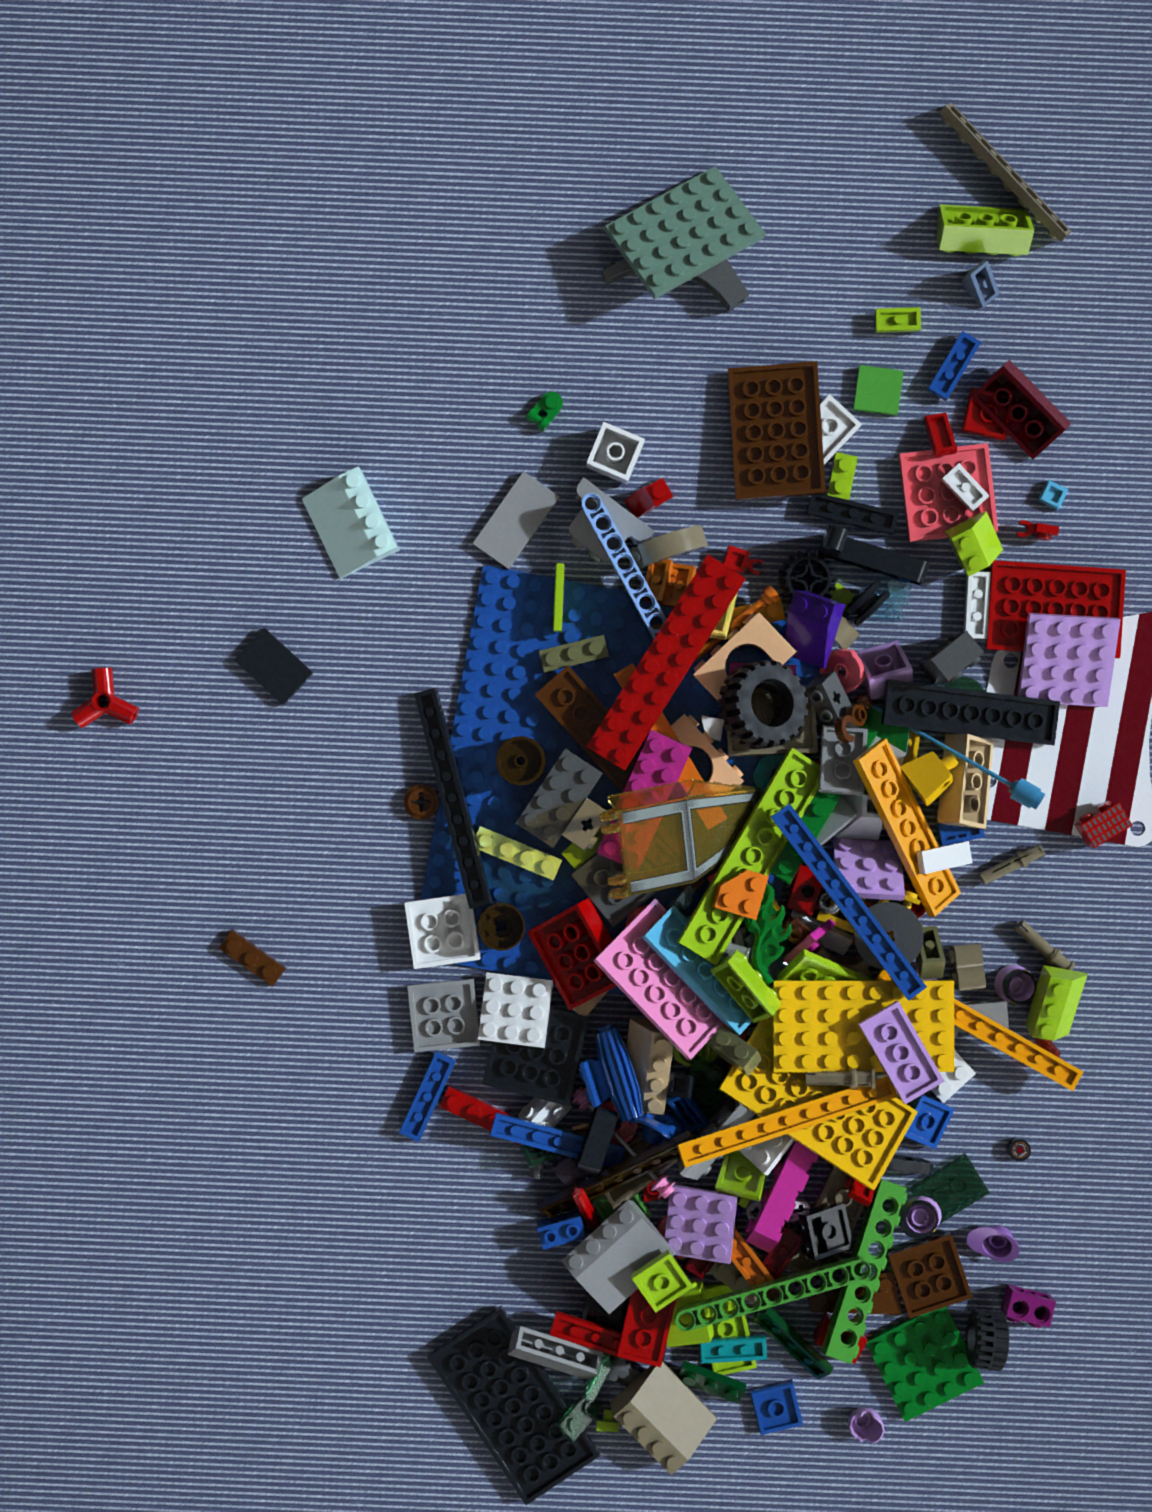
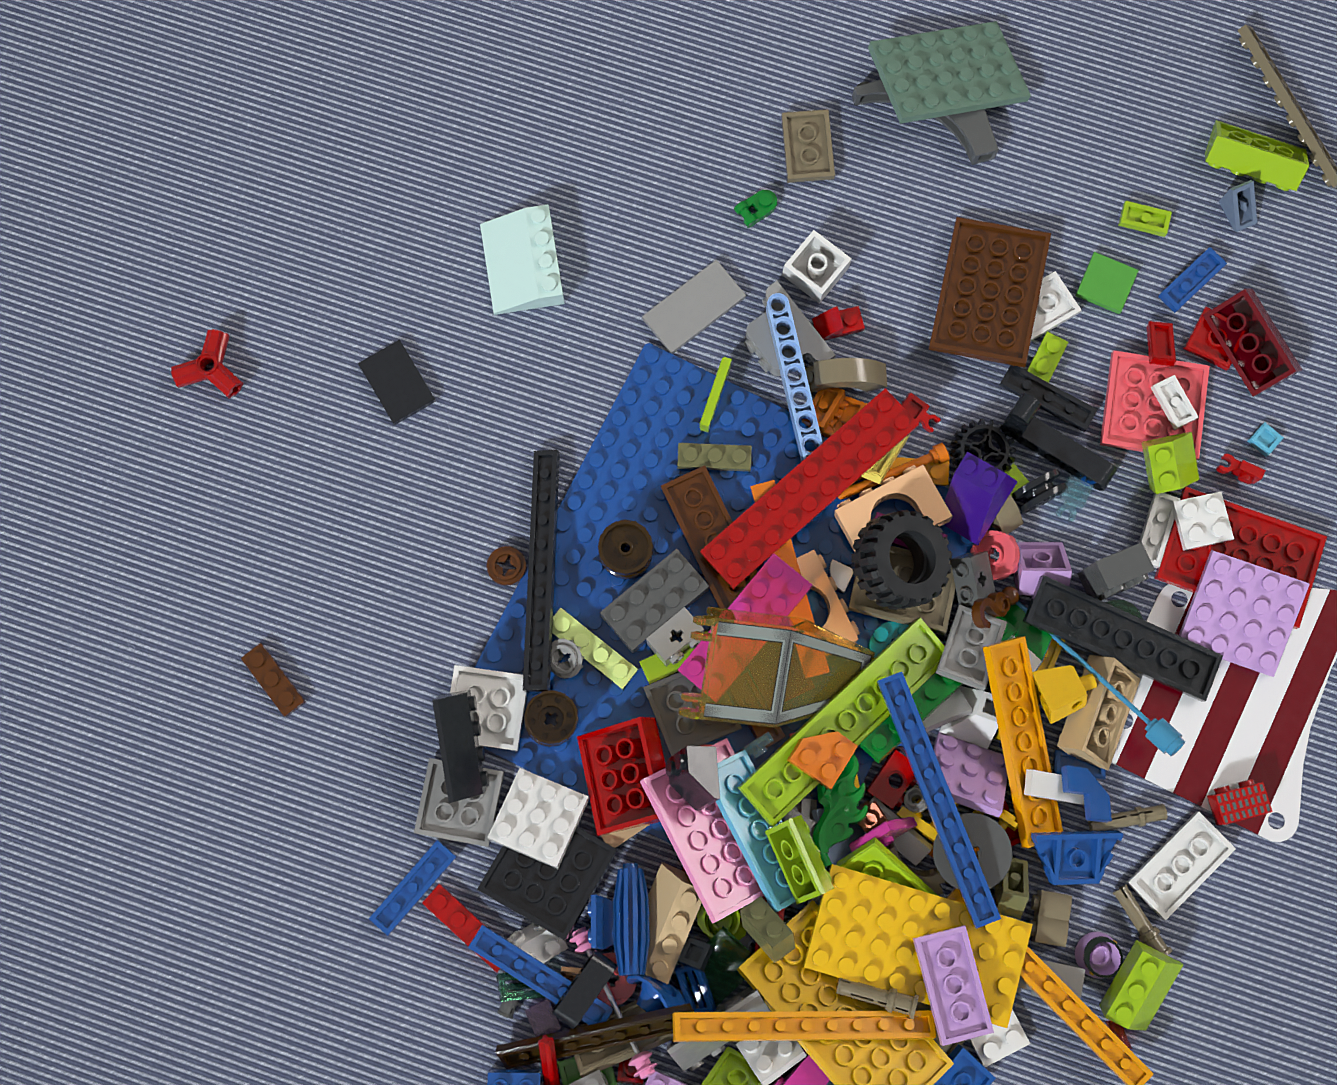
camera: 15 degrees right, 10 degrees down
(431, 972) = (460, 745): none -> black slope
(502, 876) = (570, 668): none -> light grey gear
(575, 338) = (807, 146): none -> dark tan plate
(639, 944) = (695, 775): none -> black slope
(975, 909) = (1075, 856): none -> blue wing
(981, 856) = (1096, 799): none -> blue tile
(1014, 588) = (1202, 521): none -> white plate
(1066, 890) = (1181, 865): none -> white plate

